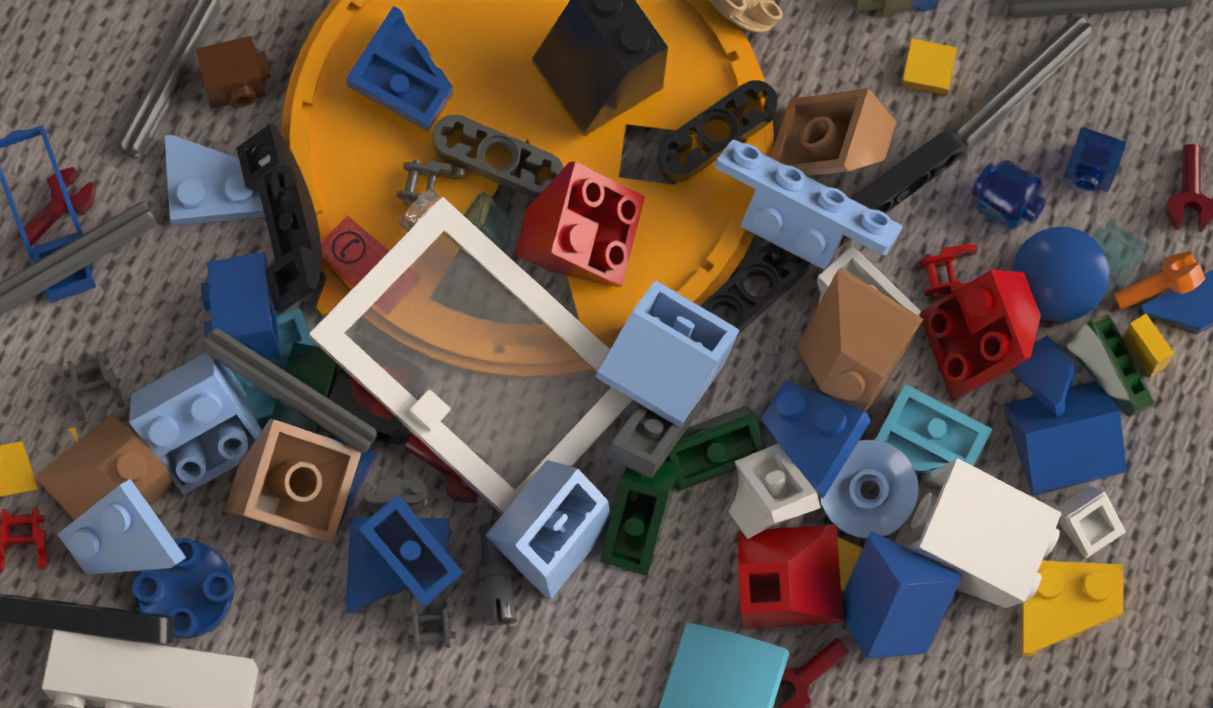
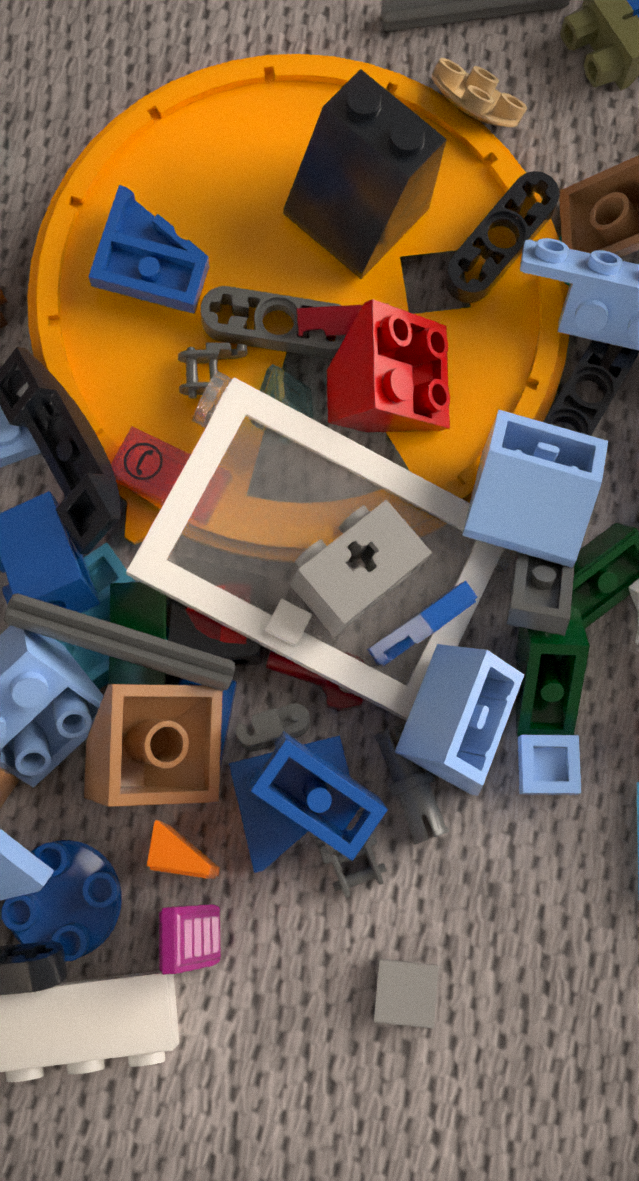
camera: 15 degrees left, 5 degrees up
(279, 639) = (189, 938): none -> magenta slope
(288, 574) = (177, 855): none -> orange slope
(484, 400) = (343, 595): none -> light grey brick
(540, 440) = (423, 623): none -> blue tile
(542, 167) = (329, 319): none -> dark red piece
(616, 588) = (549, 765): none -> light blue plate

